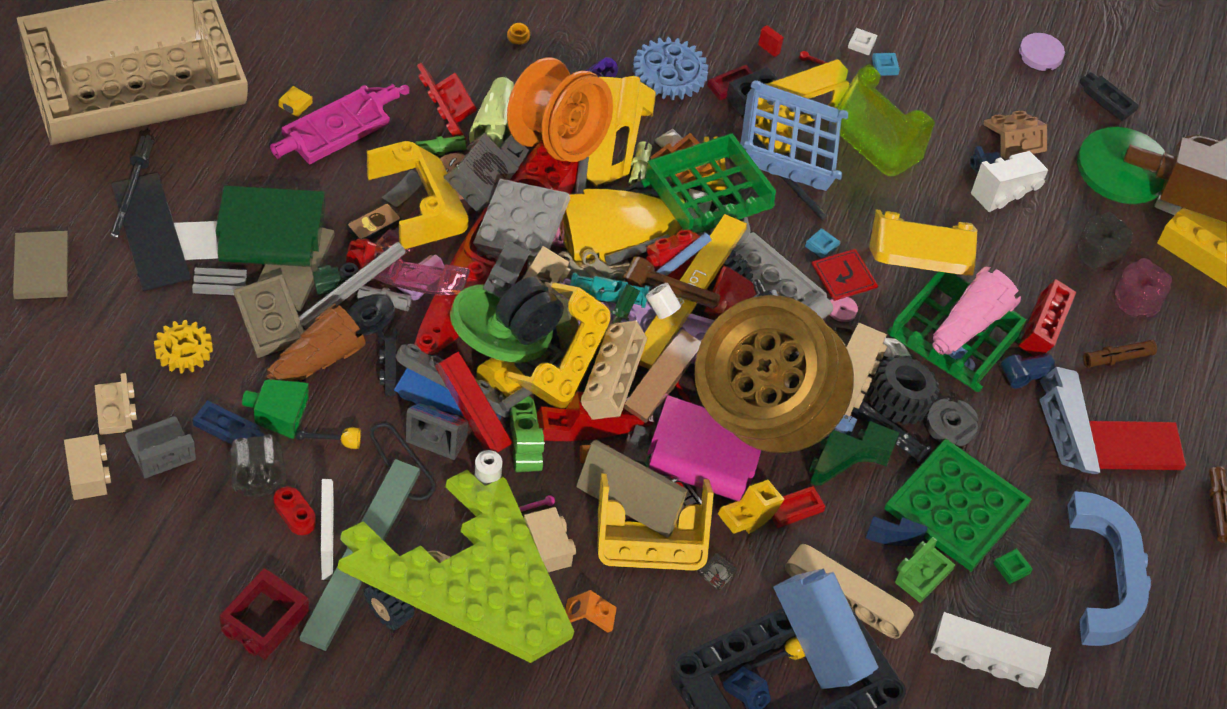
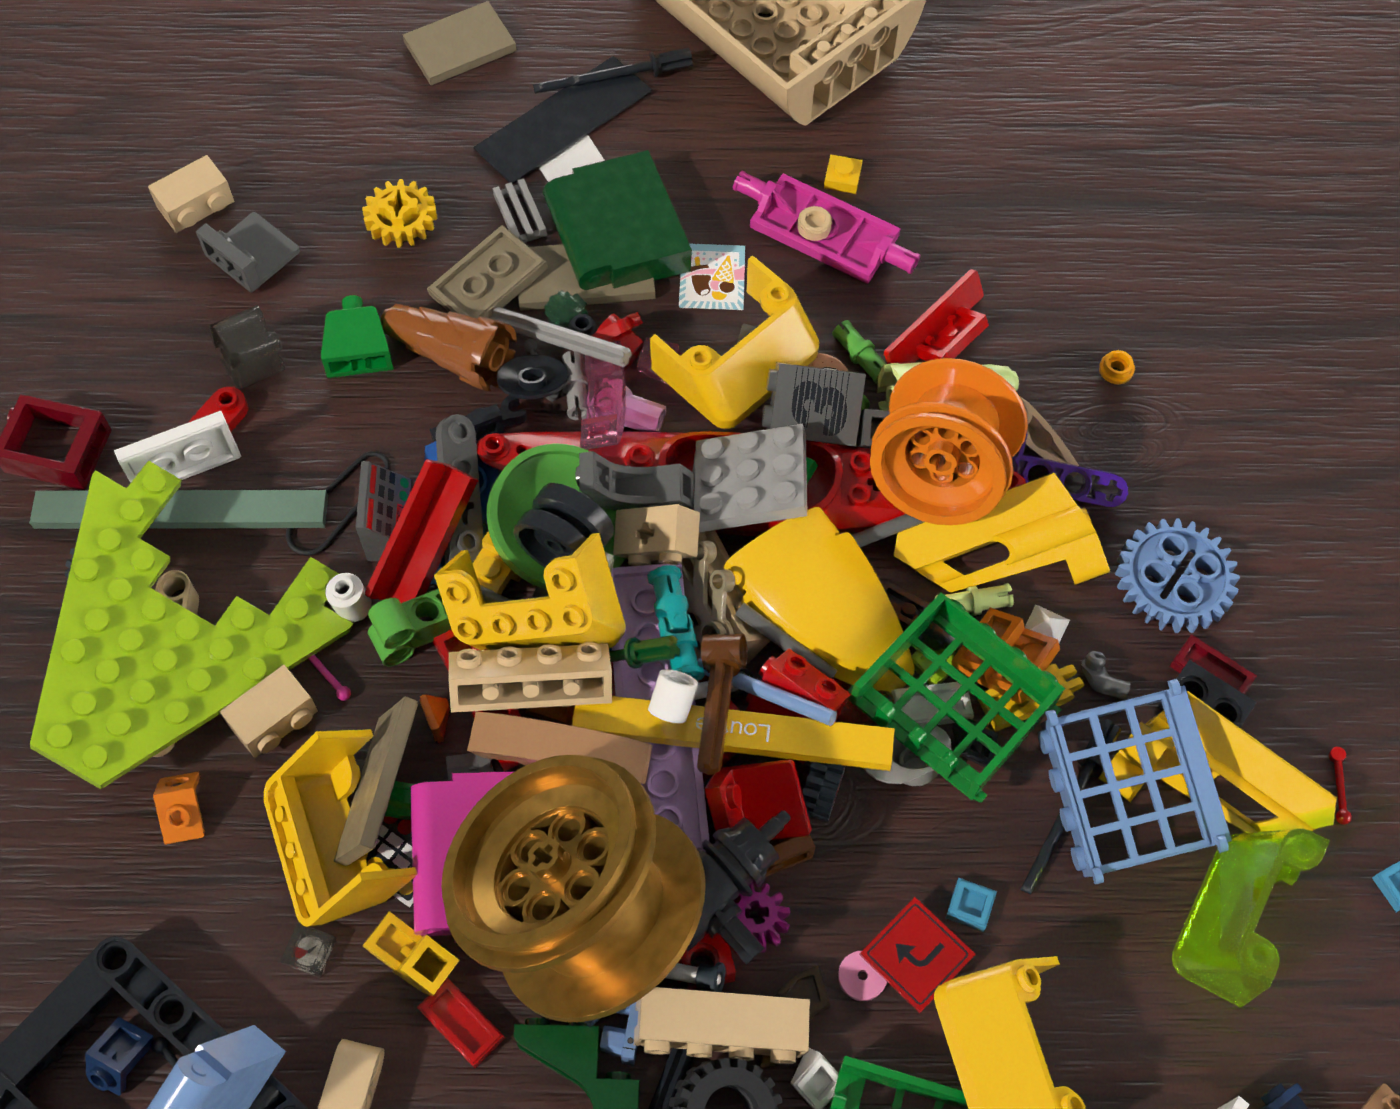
camera: 75 degrees right, 10 degrees up
(114, 406) = (291, 188): tan bracket -> none
(224, 423) = (306, 303): dark blue hinge -> none
(336, 125) = (814, 223): none -> tan tile
(340, 199) = (714, 278): none -> sticker
(350, 437) = (343, 432): hinge -> none
(374, 223) = (691, 328): tile -> none
(404, 89) = (935, 277): dark pink hinge -> none
(710, 131) = (1098, 678): none -> dark grey arm
(770, 41) = (1326, 693): red tile -> none
(781, 275) = (855, 860): light grey hinge -> none

